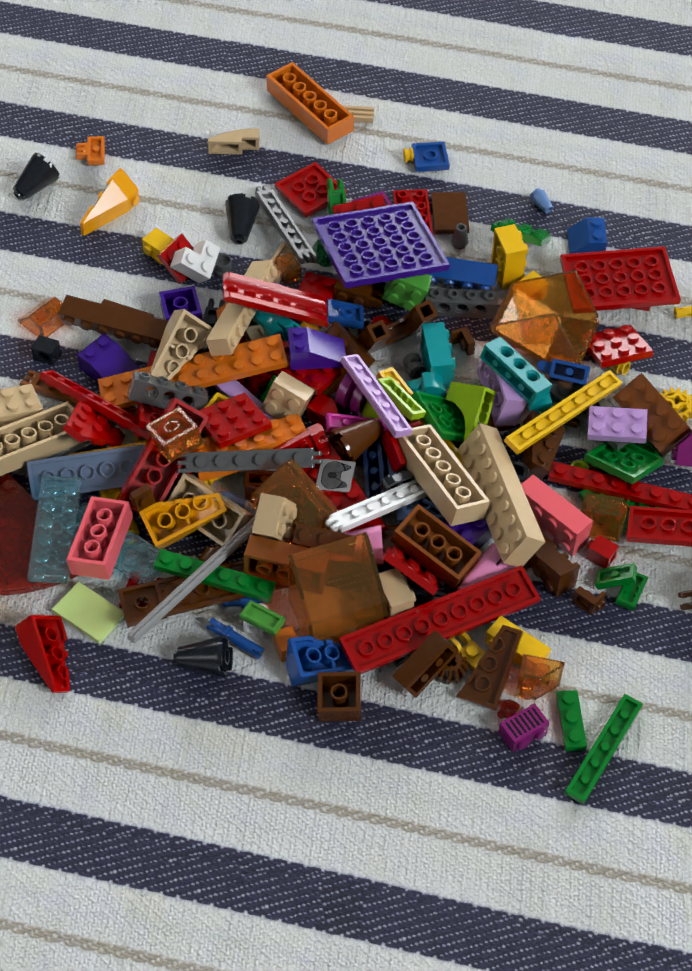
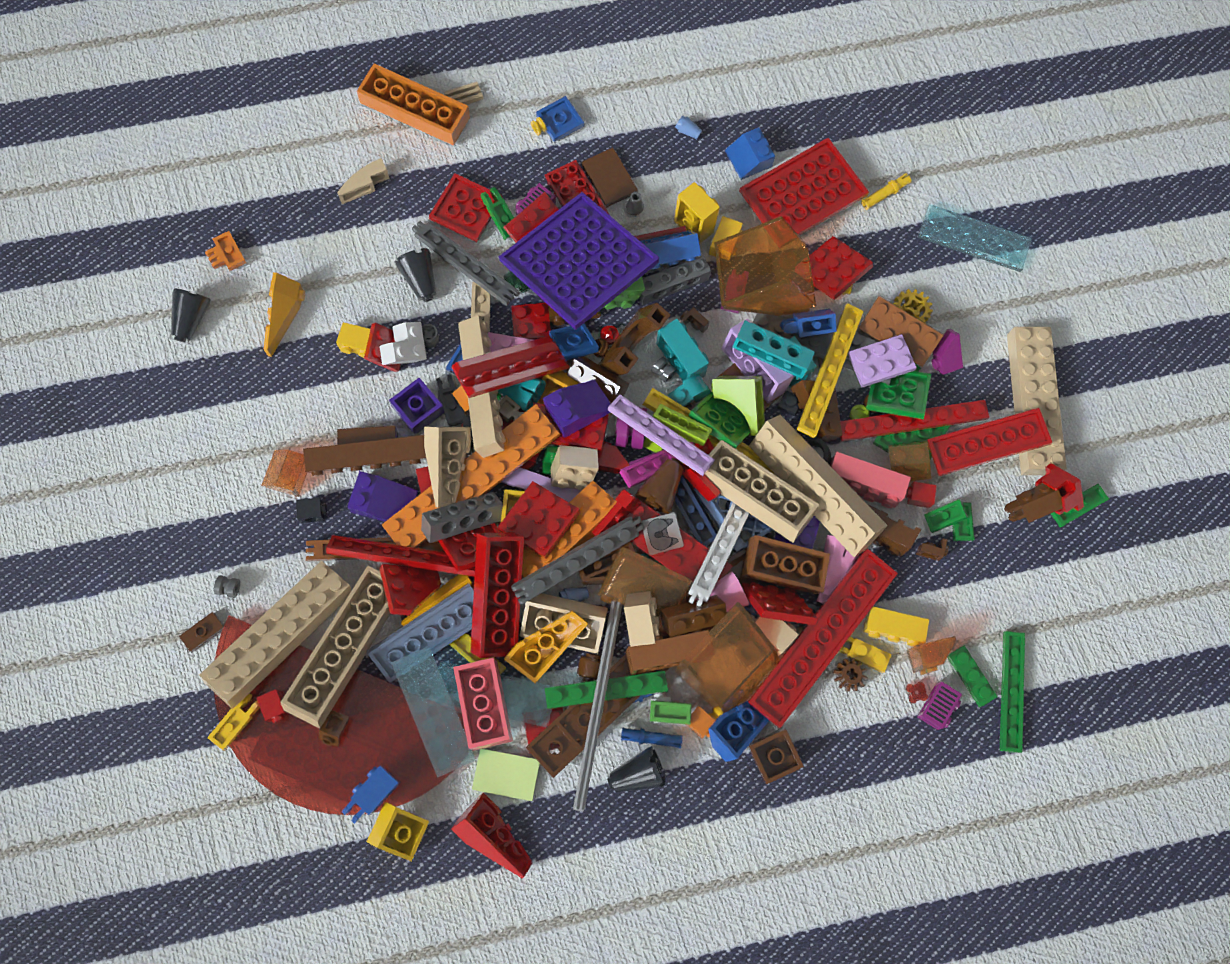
camera: 30 degrees left, 20 degrees up
(142, 497) = (502, 647): reddish brown bracket -> none
(175, 434) = (504, 574): clear orange slope -> none
(289, 267) = (493, 310): clear orange bracket -> none
(390, 482) = (717, 519): black plate -> none
(425, 663) = (833, 689): reddish brown brick -> none
(491, 674) = (890, 664): reddish brown wing -> none
(536, 237) = (680, 176): green plate -> none

